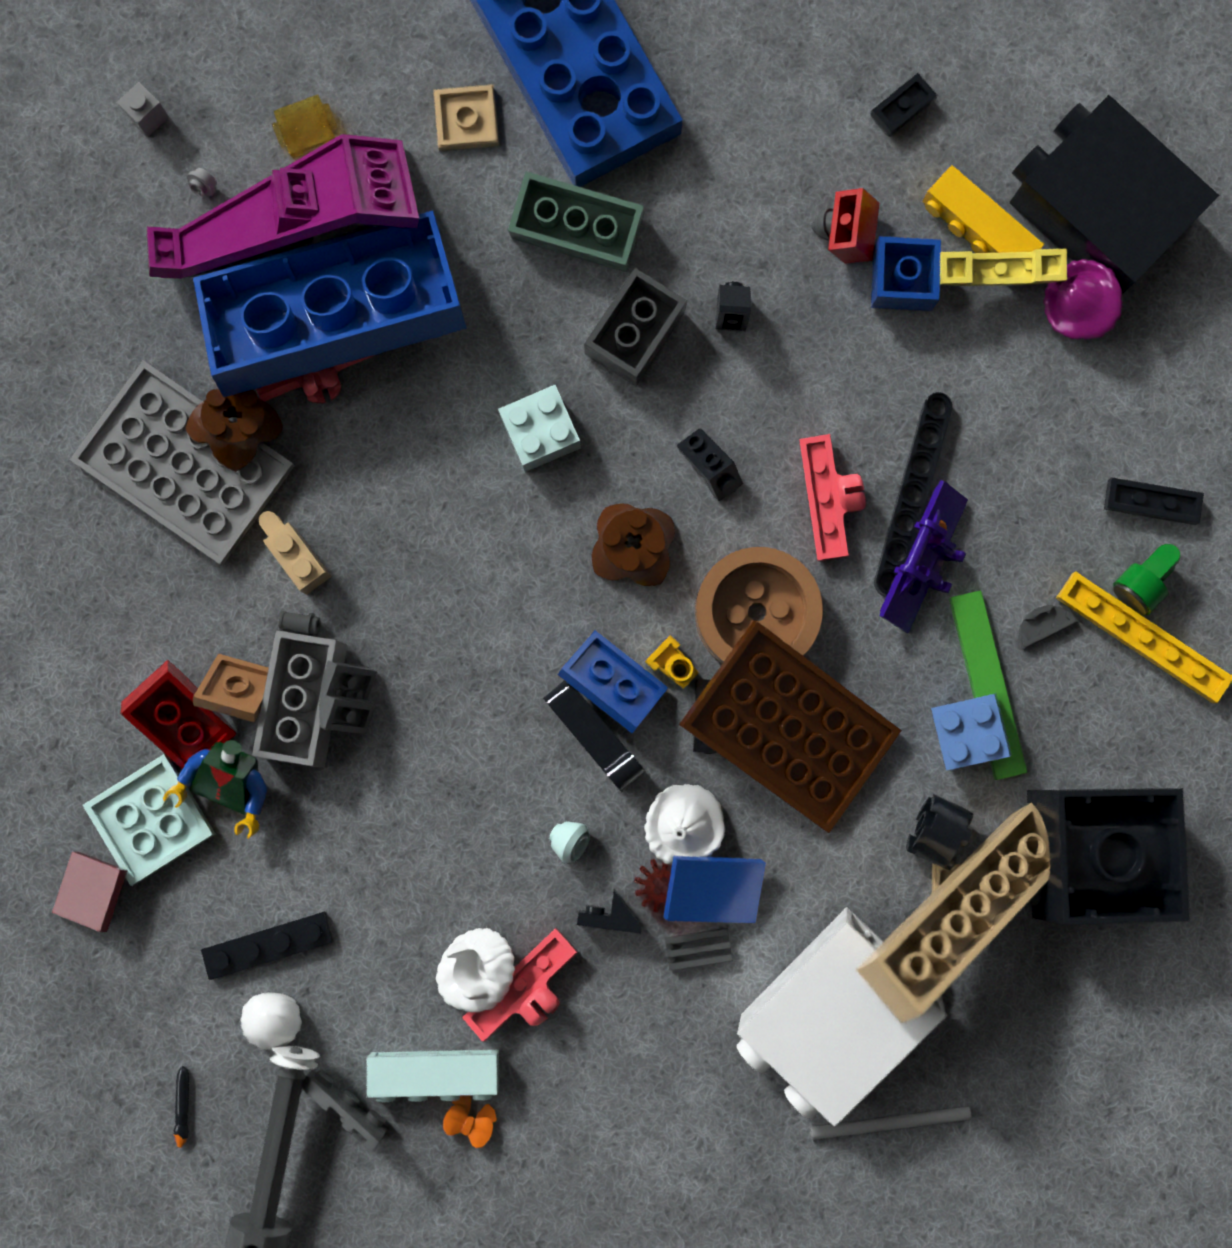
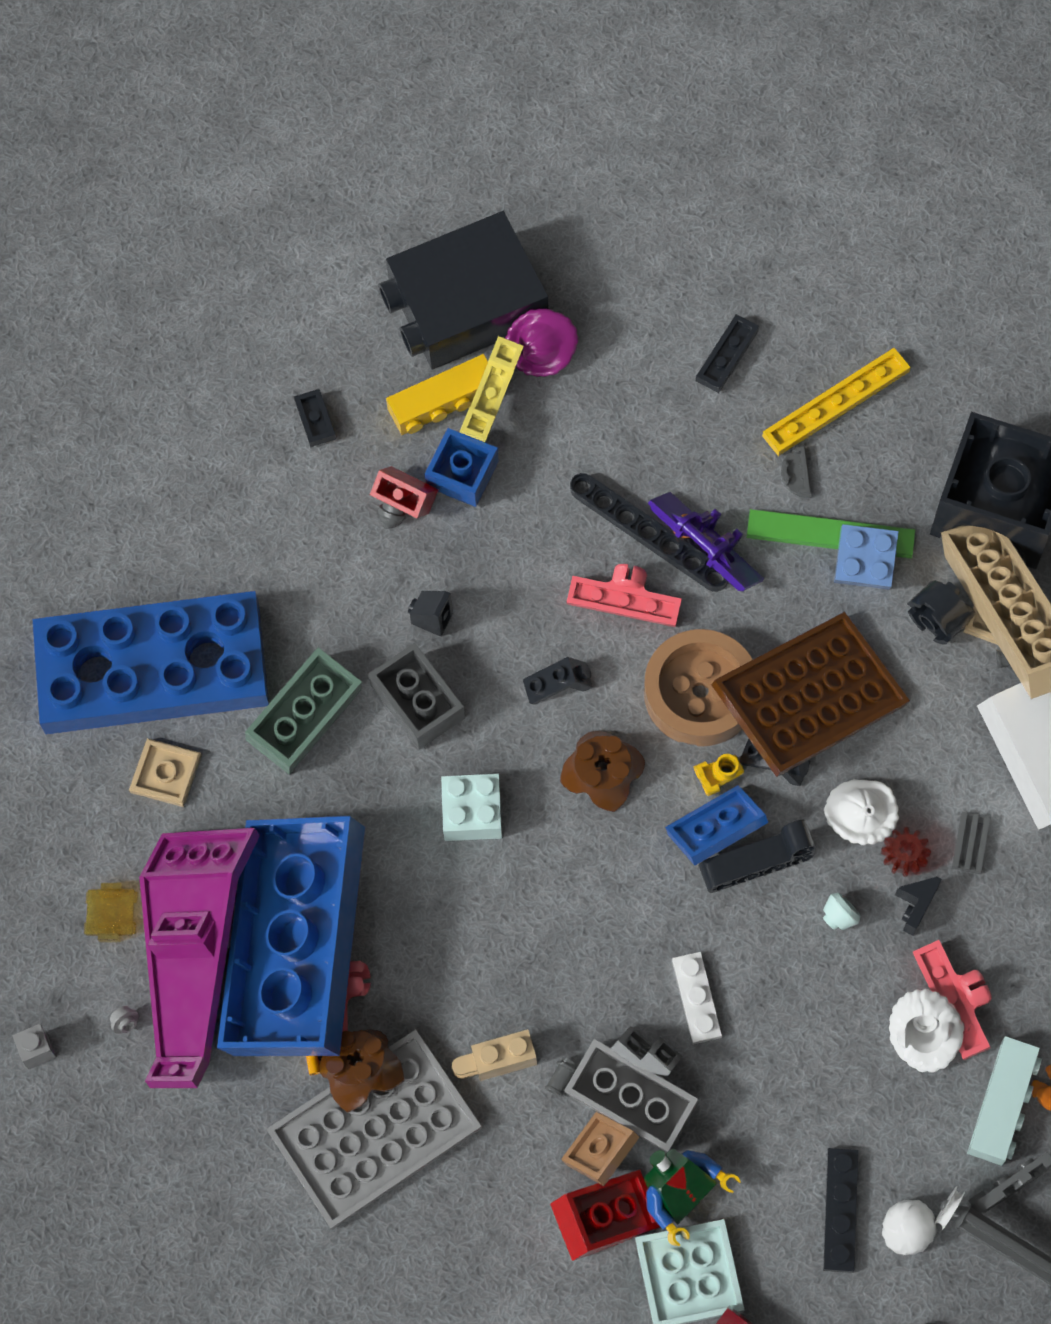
camera: 65 degrees left, 15 degrees down
(429, 726) = (696, 998): none -> white plate
(714, 889) = (925, 806): blue tile -> none
(1142, 584) = (793, 385): green piece -> none

